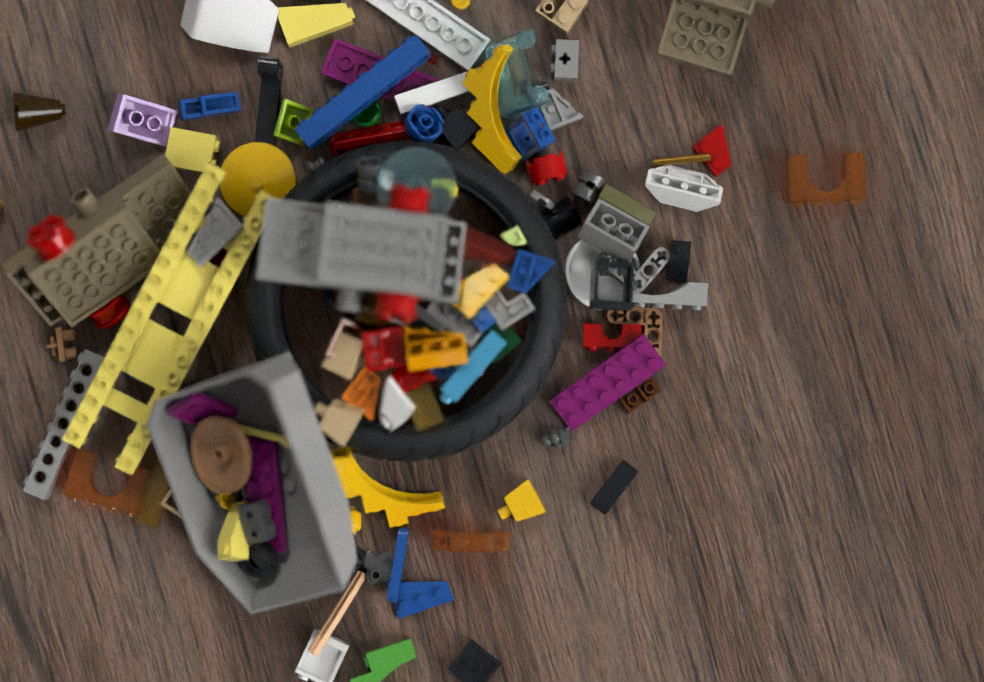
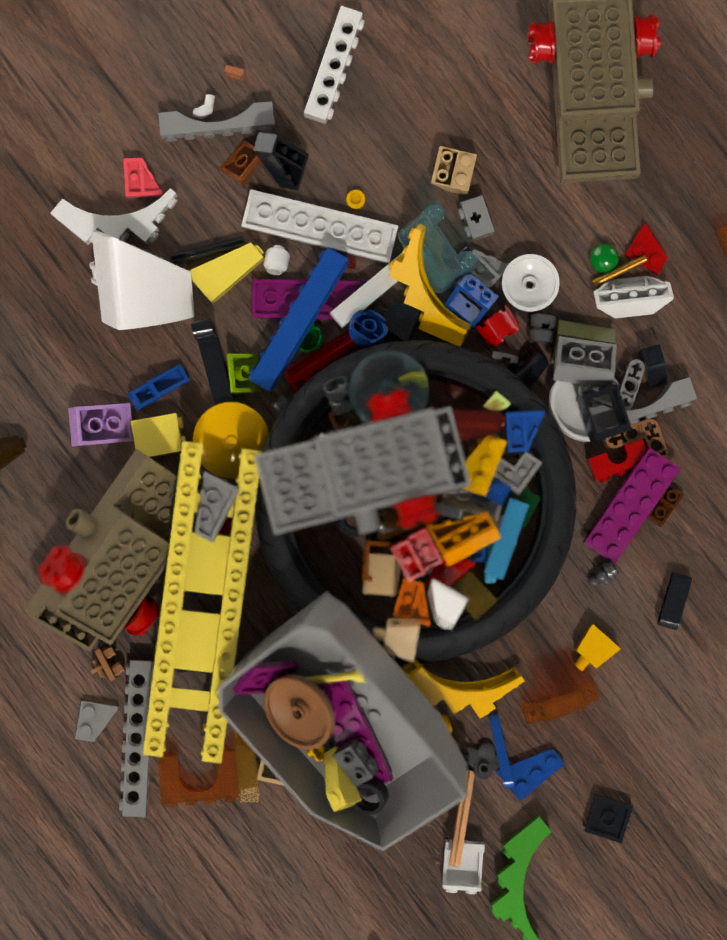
camera: 20 degrees left, 0 degrees up
(30, 392) = (93, 719): none -> light grey wing
(364, 28) = (276, 260): none -> white head
(597, 126) = (537, 271): none -> white dish
(672, 142) = (604, 258): none -> green hair

